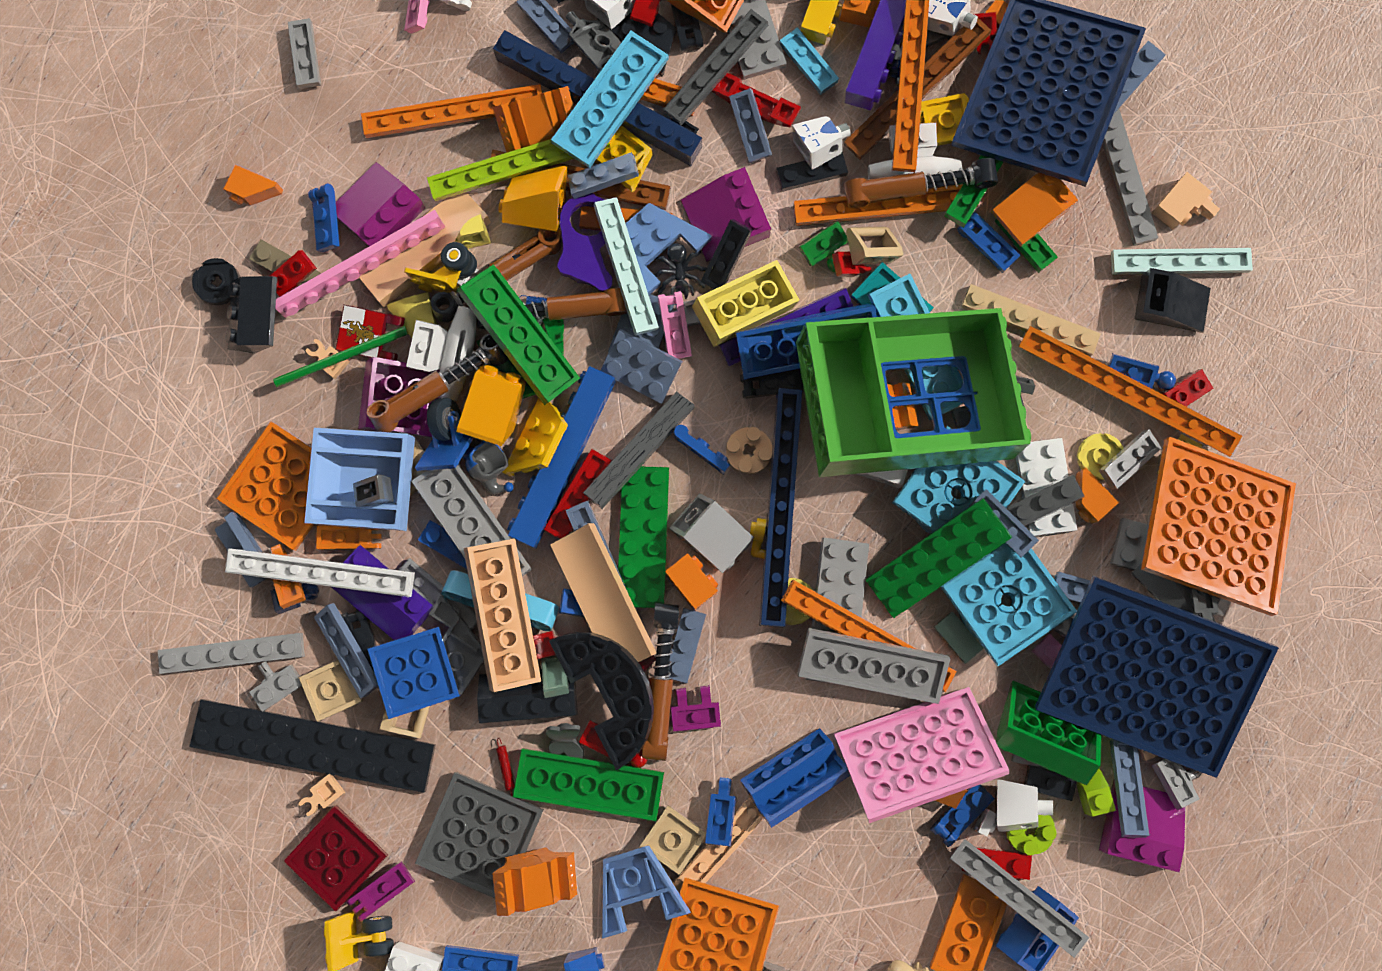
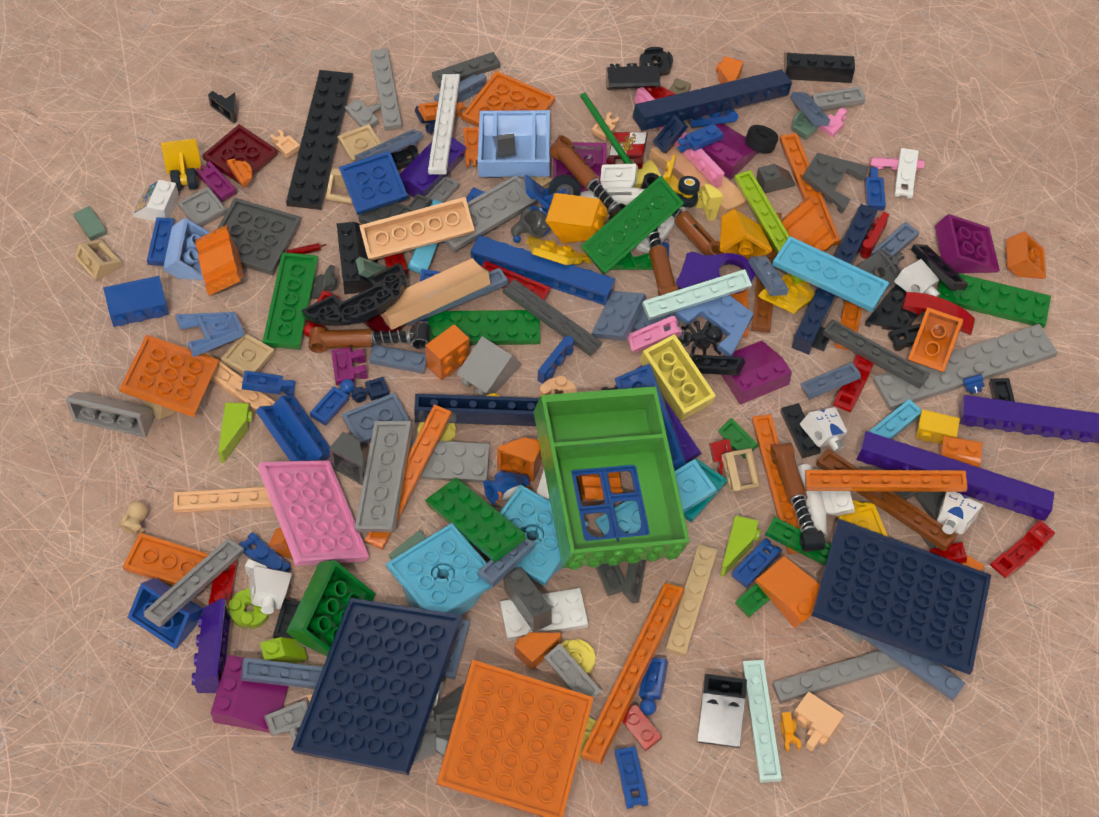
camera: 85 degrees right, 25 degrees down
(205, 540) = (467, 68): none -> dark grey plate
(243, 69) = (819, 67): none -> black slope
(249, 876) = (226, 107): none -> black slope
(306, 213) = (712, 99): none -> dark blue brick
(322, 90) = (810, 109): none -> sand blue plate
(345, 66) = (836, 123): none -> bright pink plate
(349, 104) = (803, 126): none -> sand green plate
(362, 151) = (761, 139): none -> black tyre
(363, 271) = (670, 133): none -> dark blue plate
(375, 233) = (700, 138): none -> blue plate
(375, 854) = (241, 171): none -> orange plate
(423, 908) = (202, 207): none -> light grey tile
(434, 152) = (774, 178): none -> dark grey slope
(436, 86) = (826, 173): none -> dark grey wing
(461, 31) = (875, 190): none -> blue plate
(498, 934) = (182, 252): none -> light blue slope
(533, 38) = (874, 235): none -> red plate
(732, 675) = (374, 388): none -> dark blue plate
(749, 729) = (332, 402): none -> blue plate
(776, 676) = (361, 419): none -> sand blue plate
(777, 854) = (234, 427): none -> lime slope
(842, 708) = (347, 457): none -> dark grey slope
(850, 497) = (520, 456): none -> orange slope
(881, 873) = (221, 499): none -> light nougat tile
(886, 519) = (504, 486): none -> blue animal
(962, 257) = (740, 542): none -> lime slope
(1090, 872) = (212, 647): none -> dark purple slope
(1194, 234) = (788, 727): none -> light orange plate
(1244, 406) = (630, 777): none -> blue plate

